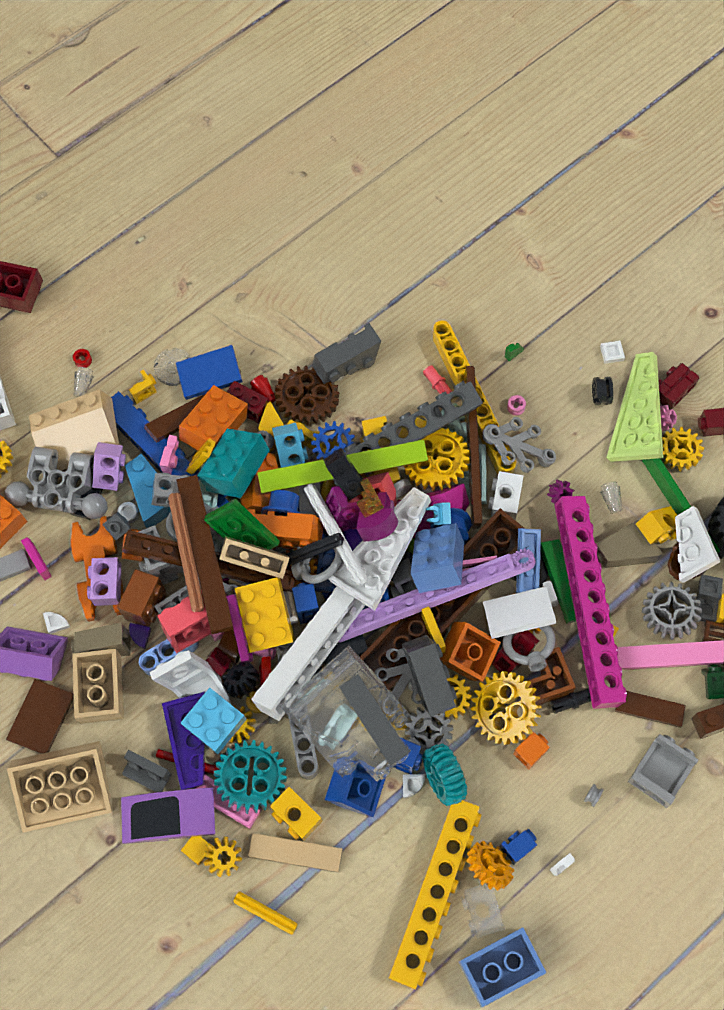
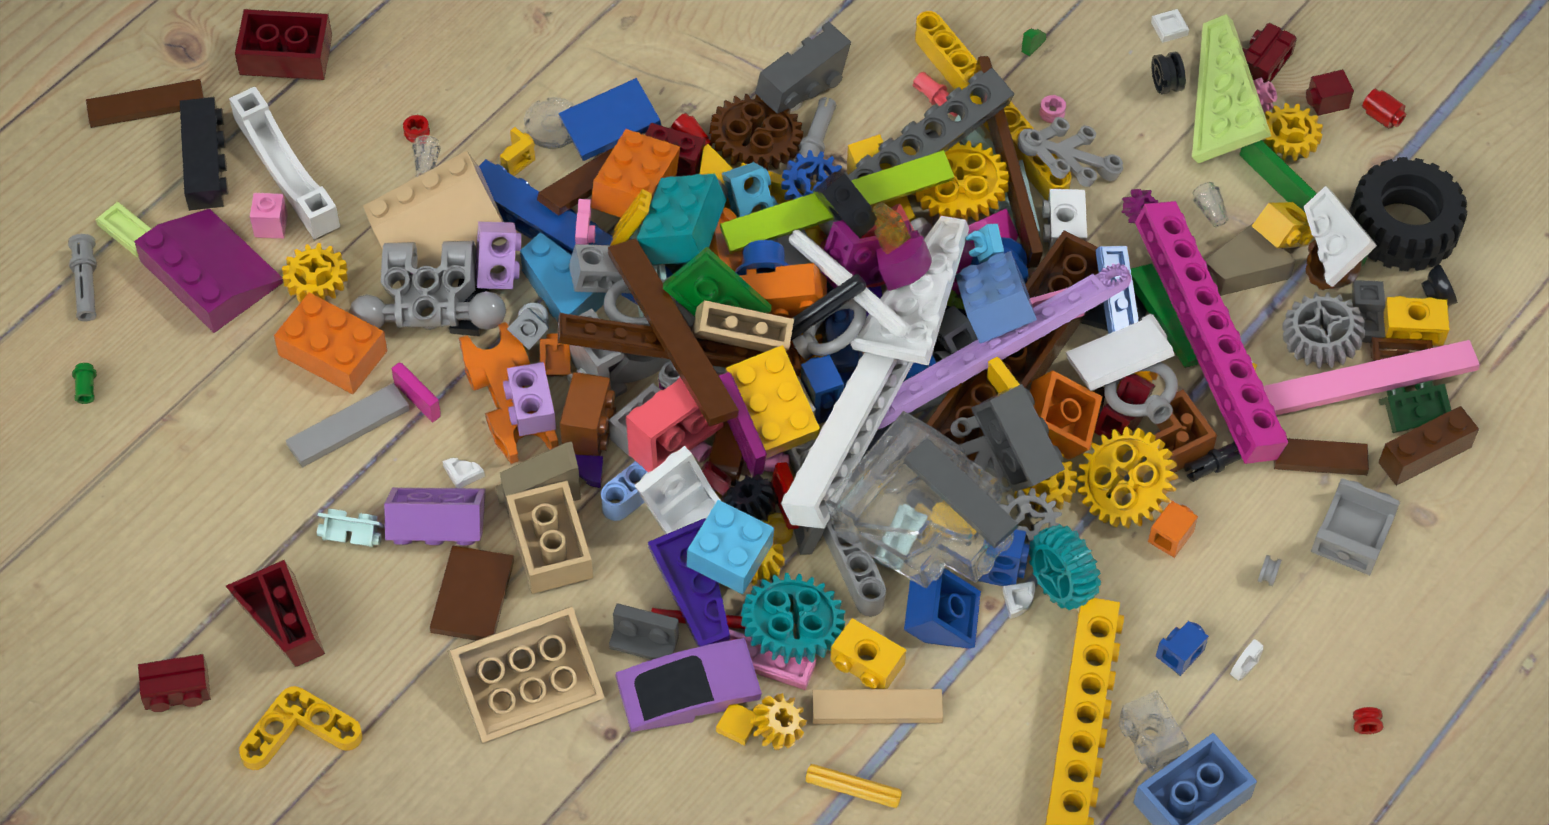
camera: 15 degrees left, 10 degrees down
(186, 552) = (647, 332): nougat axle -> none
(343, 410) = (818, 129): none -> light grey pin
(490, 865) = (1150, 671): light orange gear -> none
(640, 928) = (1368, 720): none -> red bush

